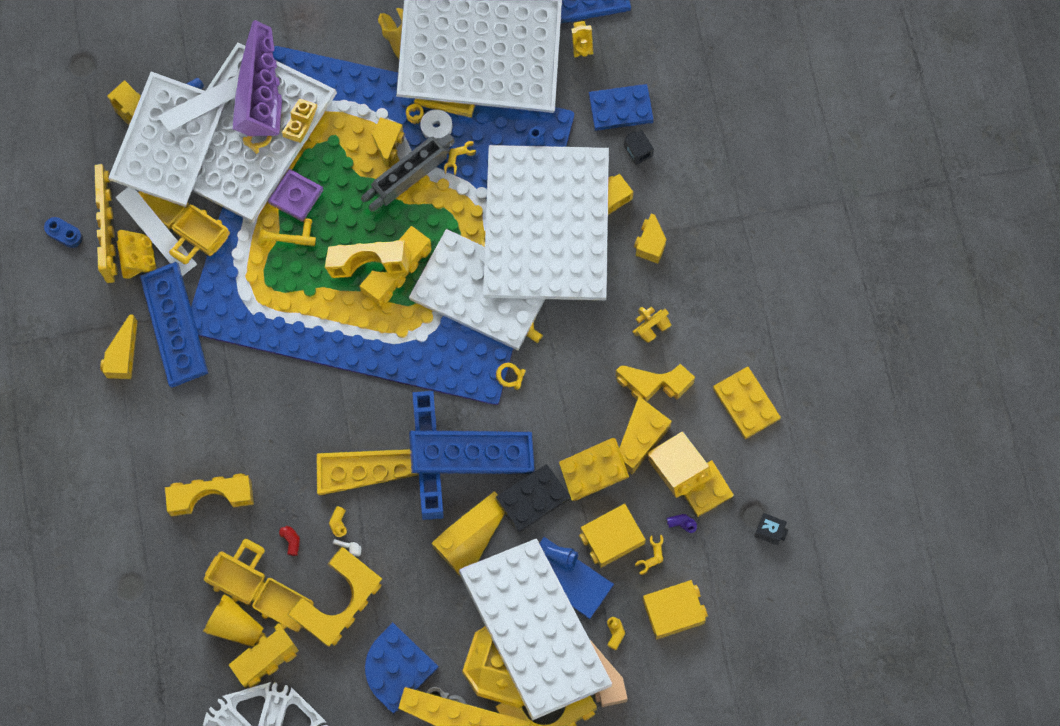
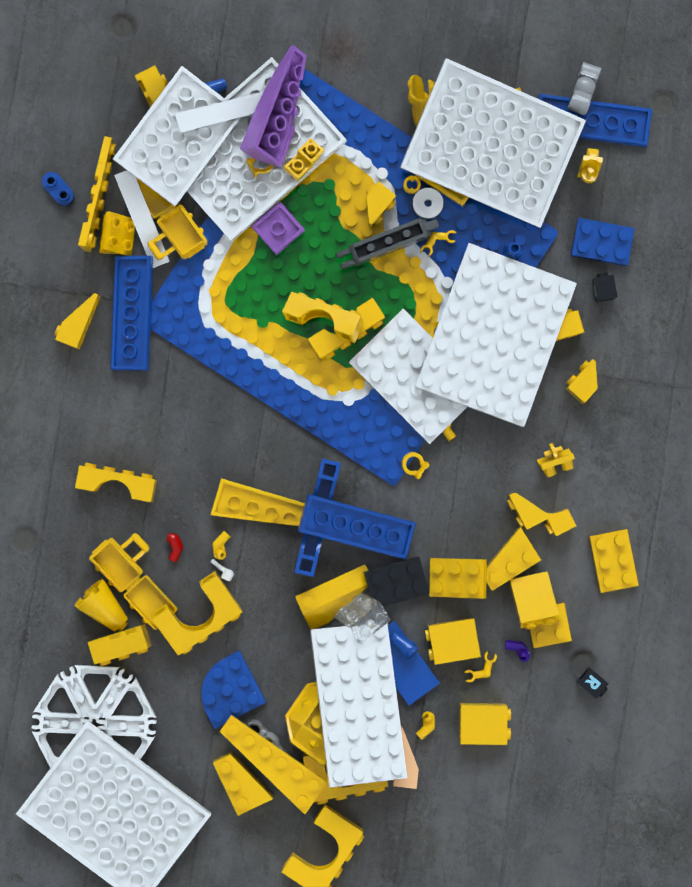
camera: 10 degrees right, 15 degrees up
(305, 239) = (272, 274): yellow piece -> none
(510, 539) = (363, 617): none -> clear bracket

